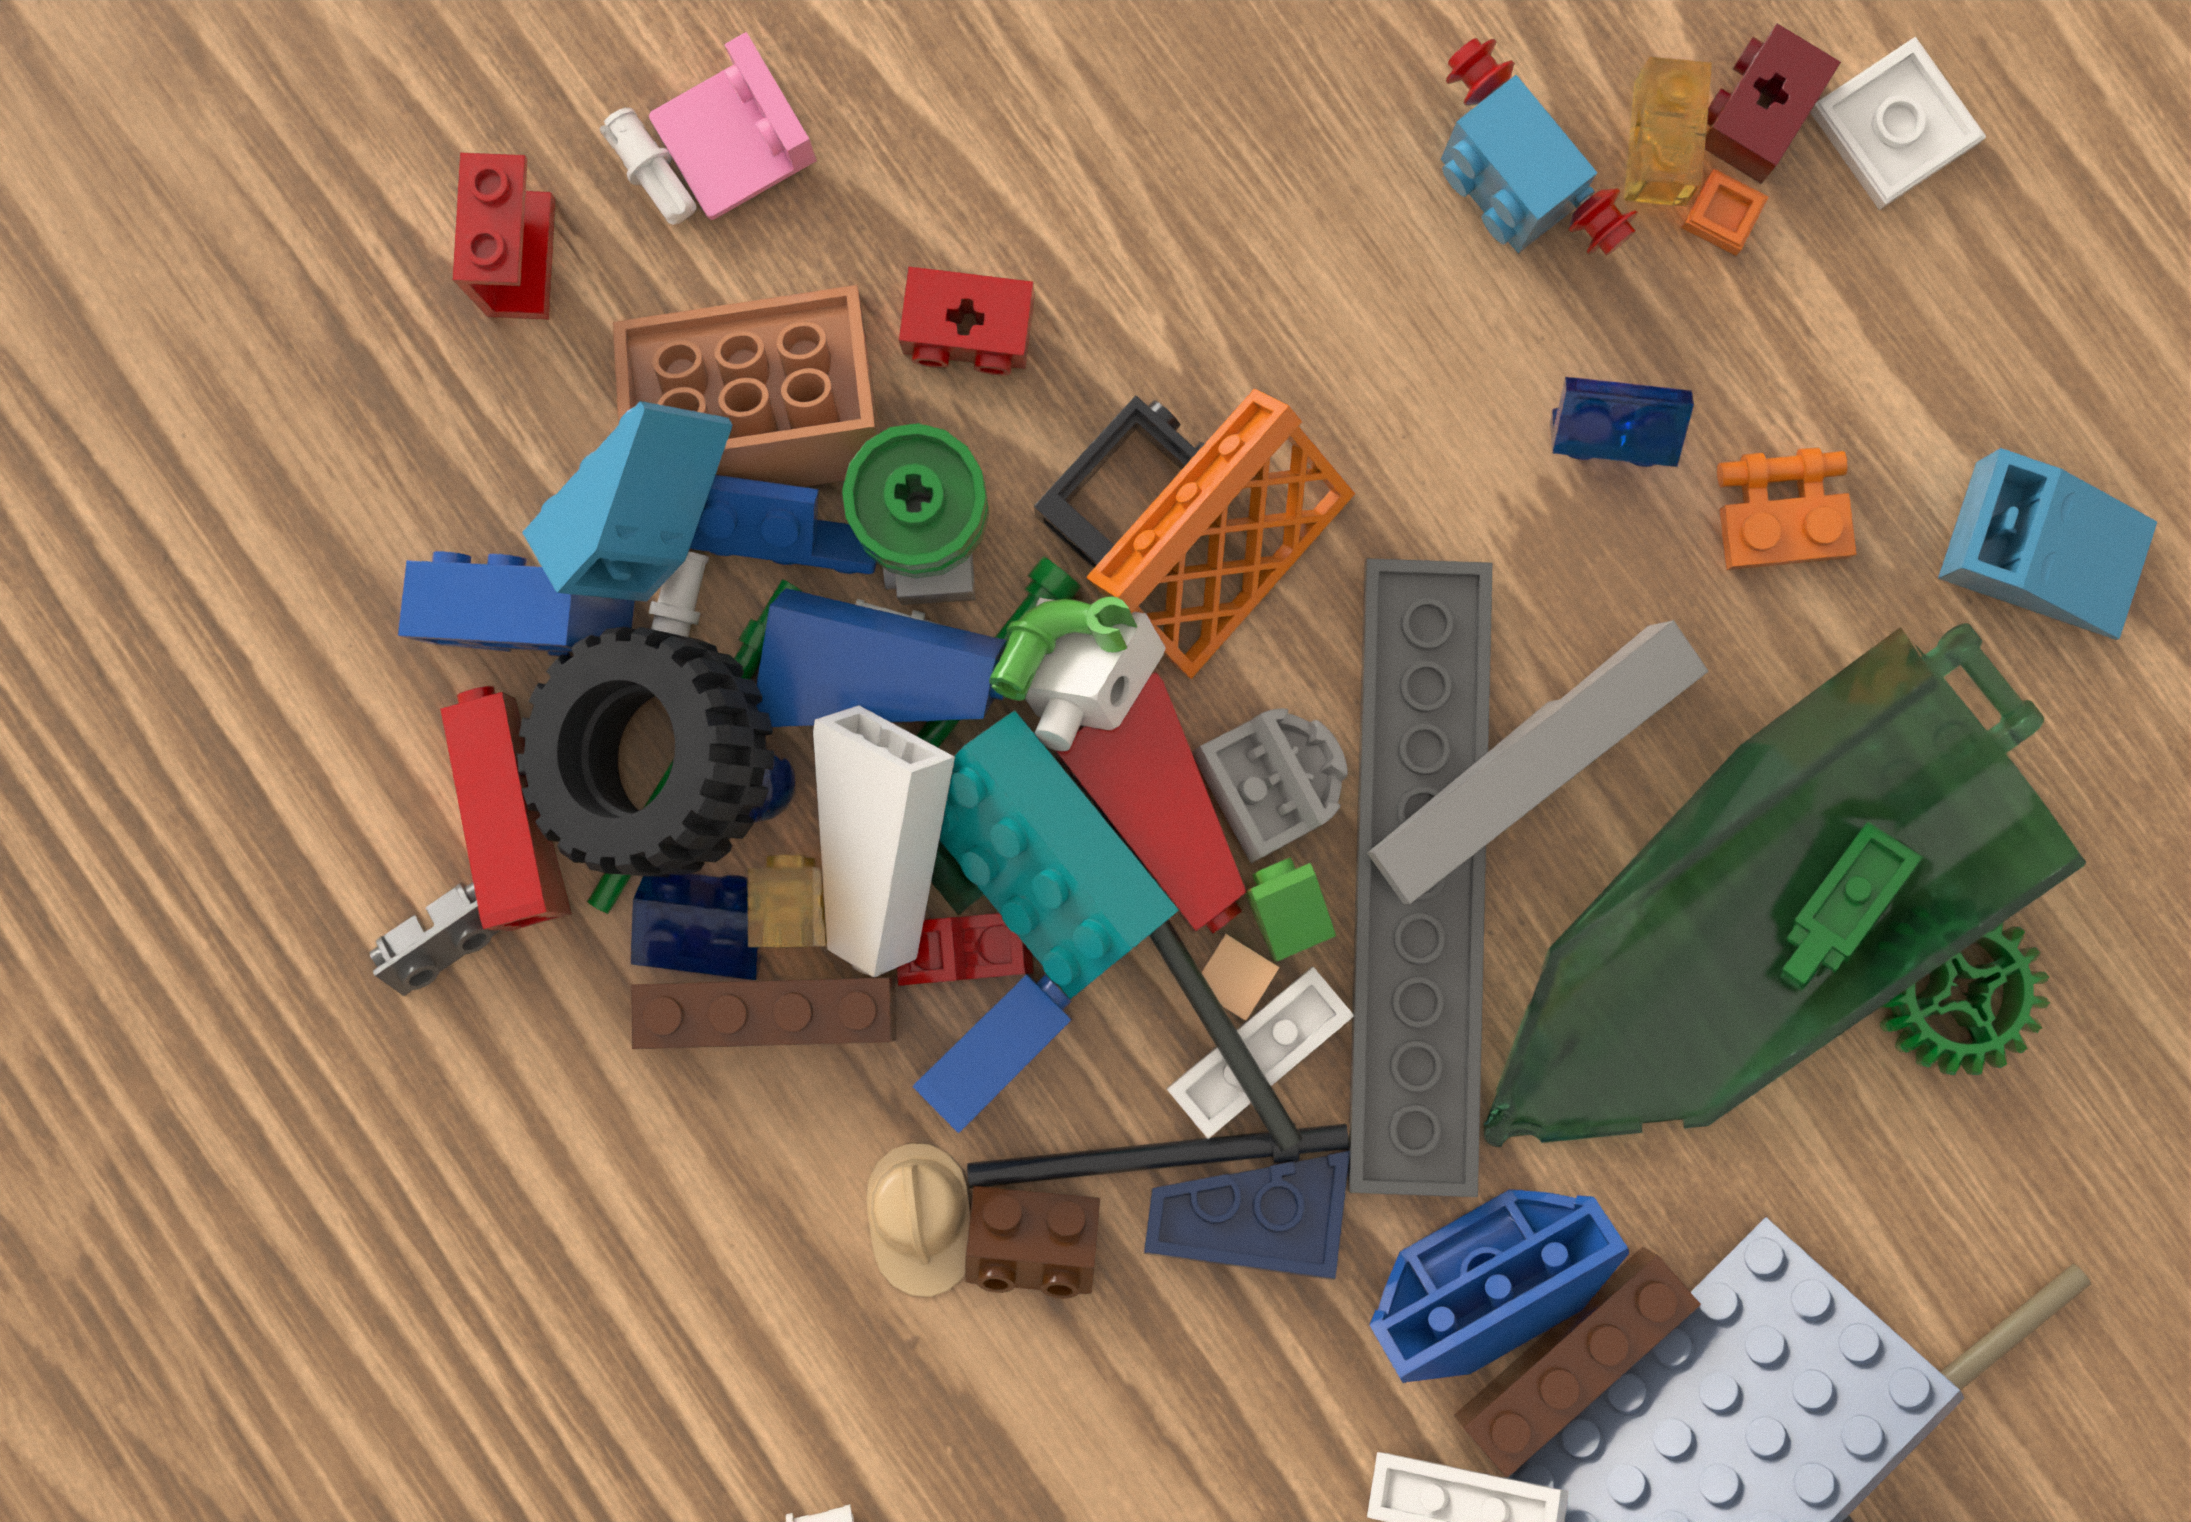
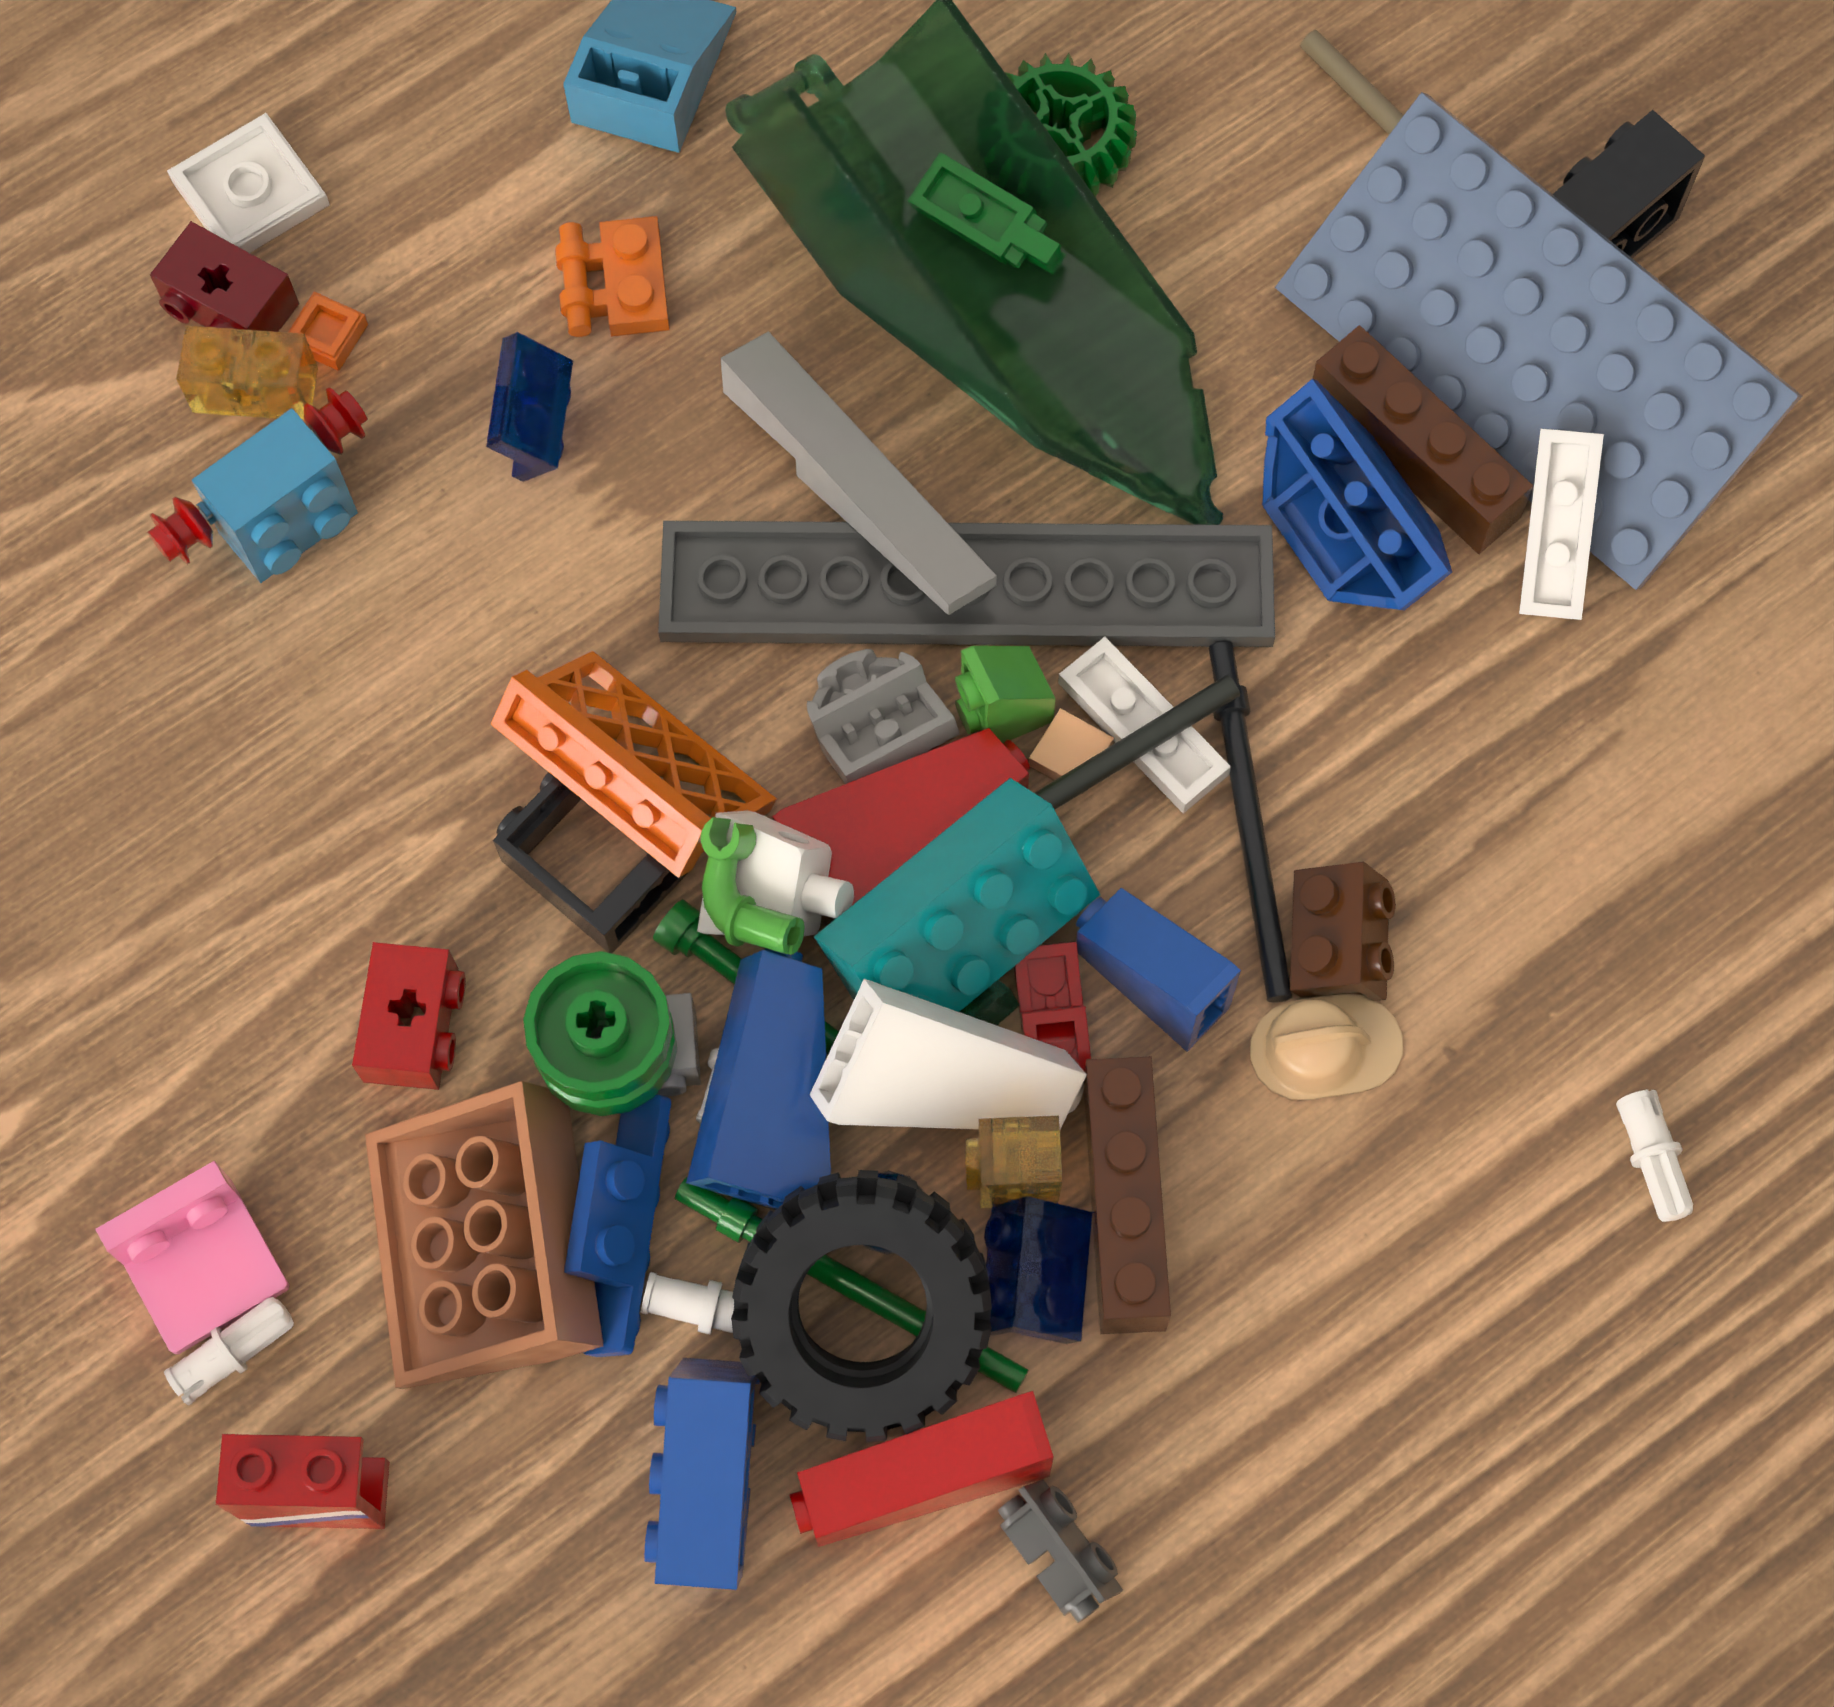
camera: 90 degrees left, 15 degrees down
(631, 505) = (606, 1312): dark azure slope -> none
(1255, 1219) = (1305, 725): dark blue wing -> none

